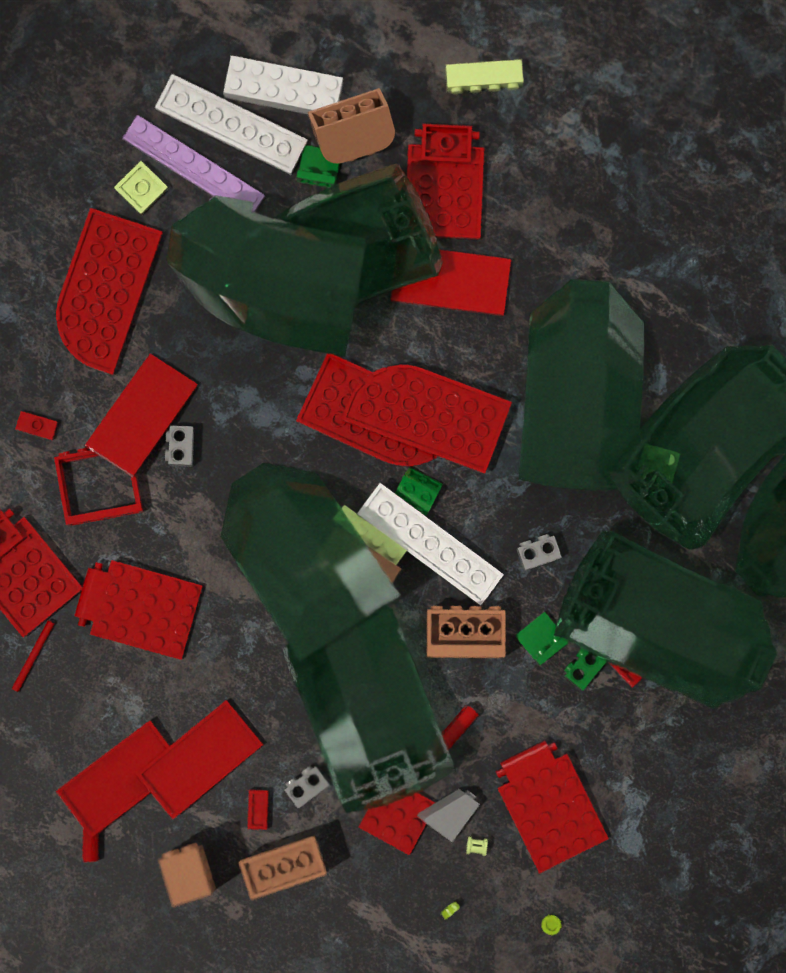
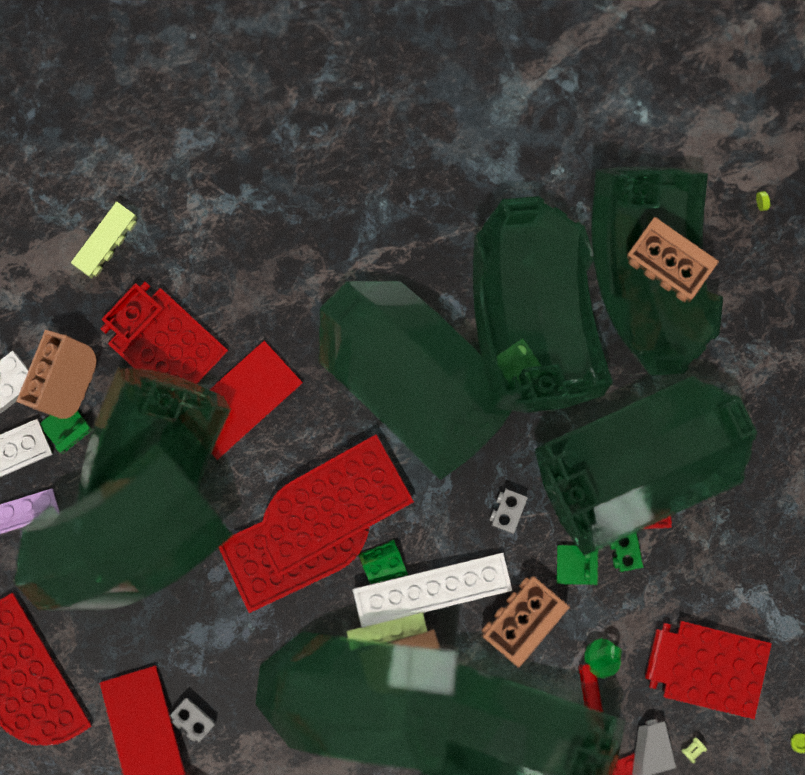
camera: 50 degrees left, 0 degrees up
(488, 717) = (603, 658): none -> green tile

